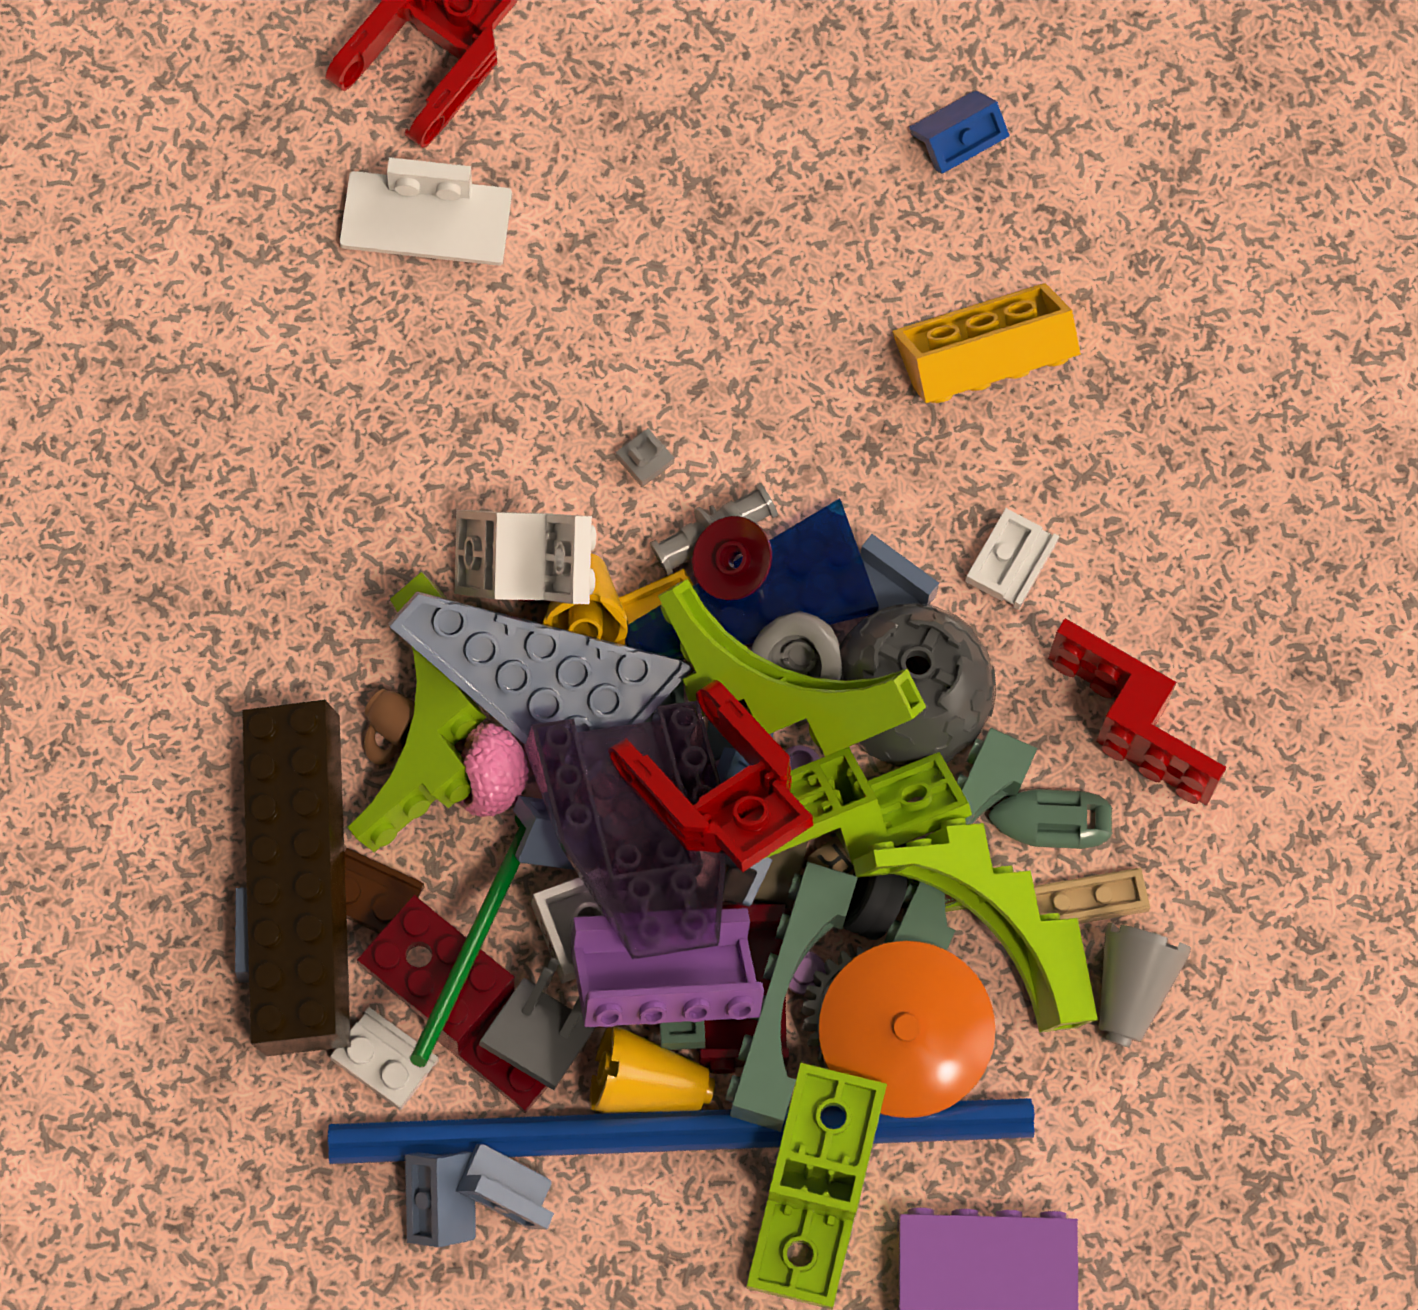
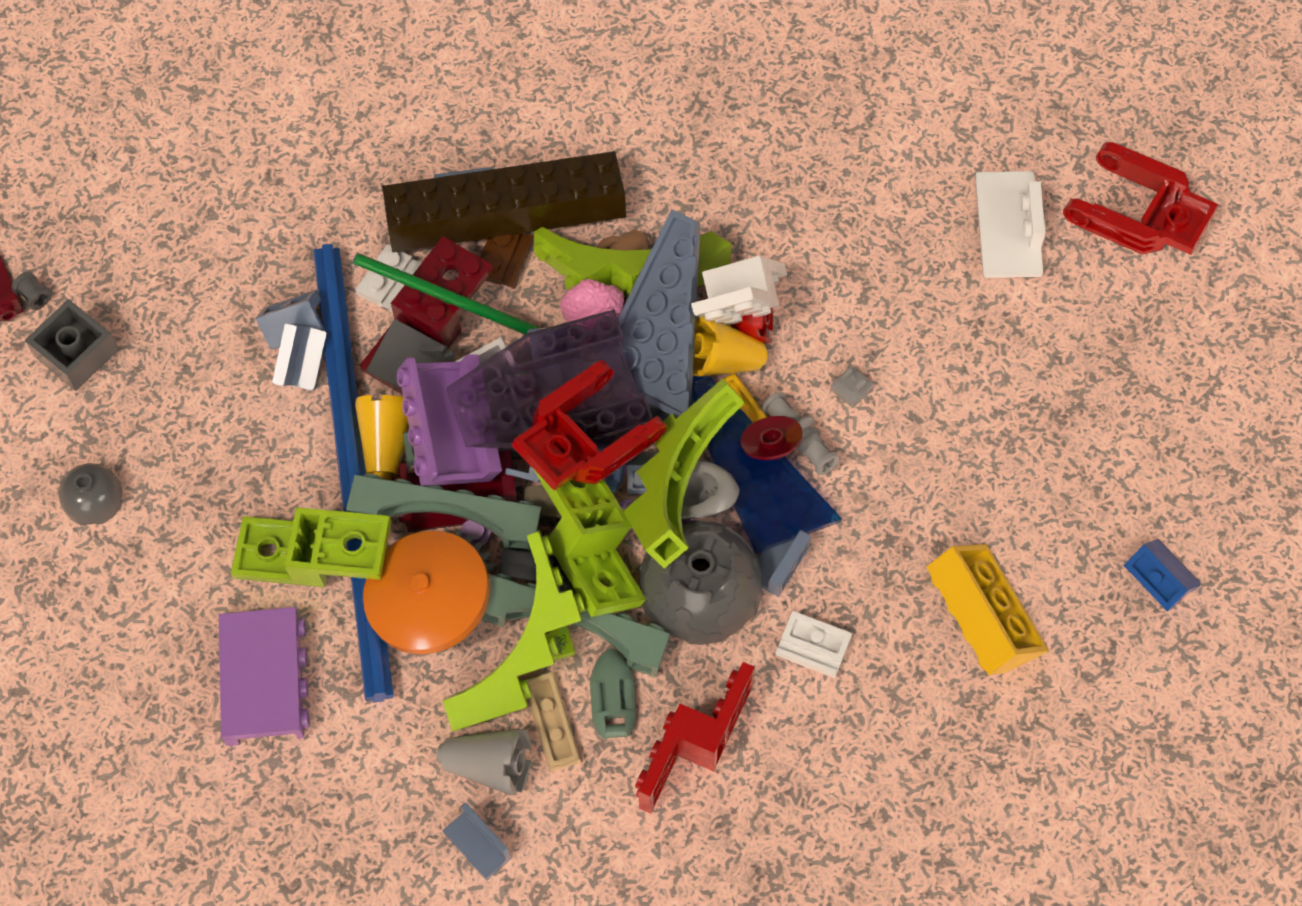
camera: 90 degrees right, 5 degrees down
(1240, 1008) = (477, 843): none -> sand blue panel

